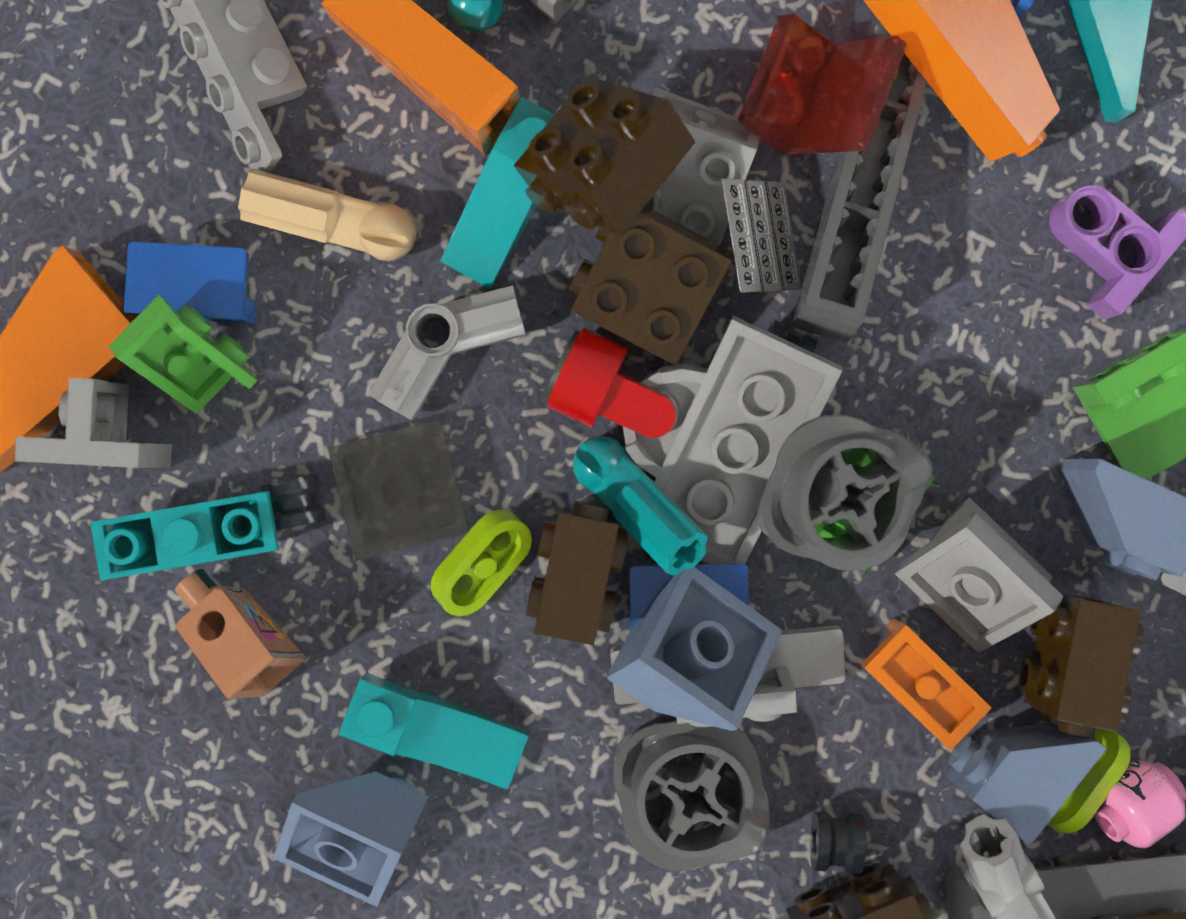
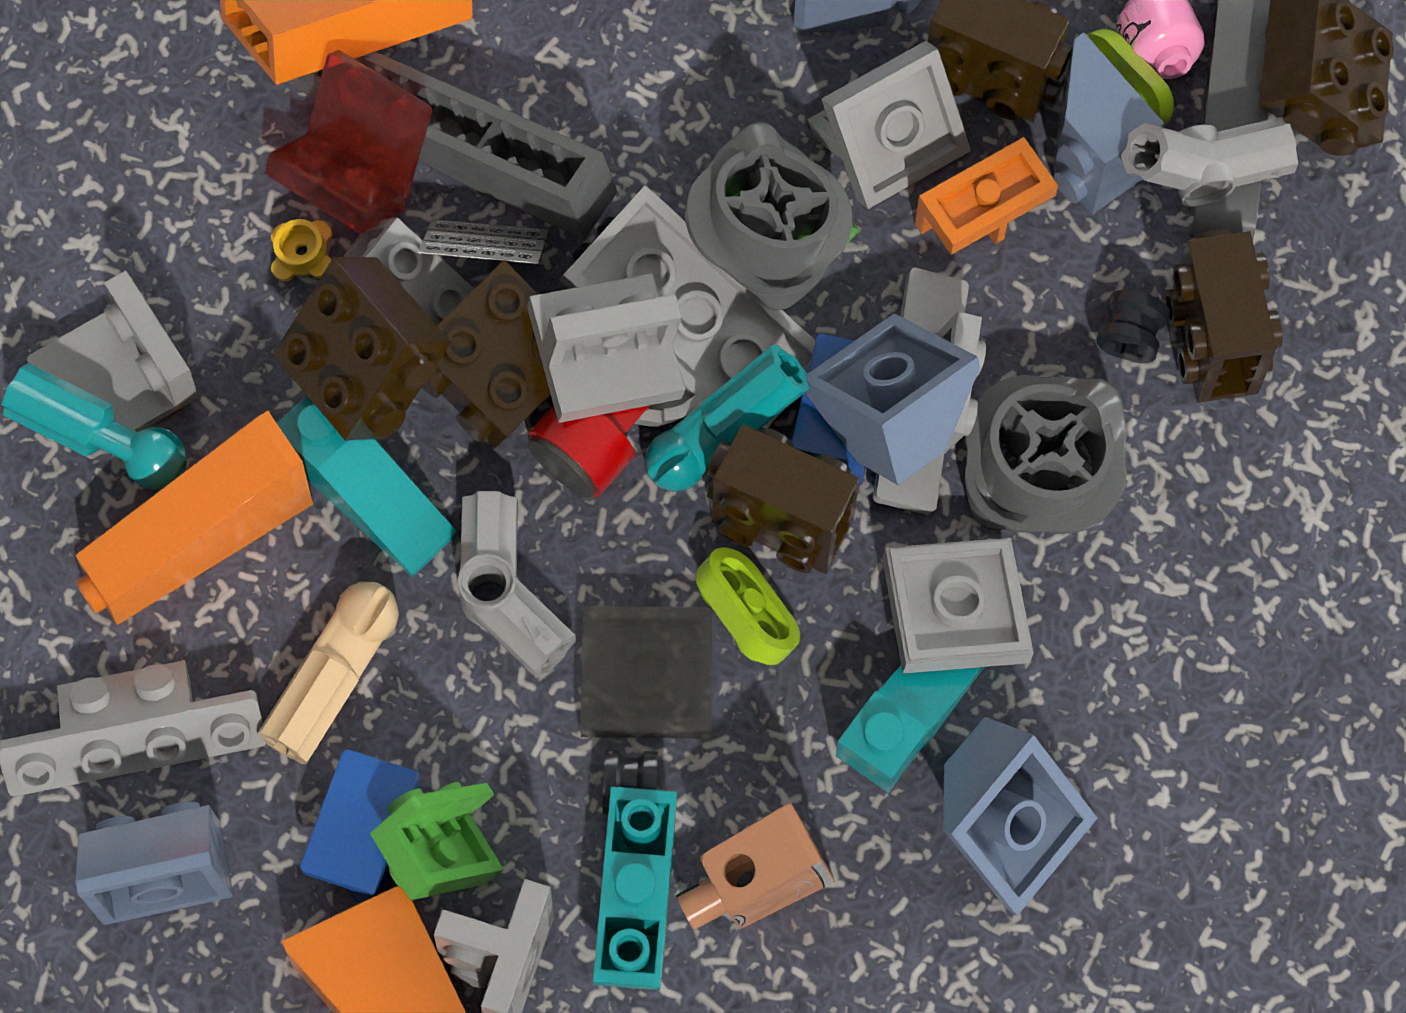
camera: 80 degrees left, 20 degrees down
(104, 112) = (153, 863): none -> sand blue slope
(523, 749) = (957, 605): none -> light grey plate
(670, 378) = (608, 346): none -> light grey bracket
(718, 57) = (295, 234): none -> yellow plate

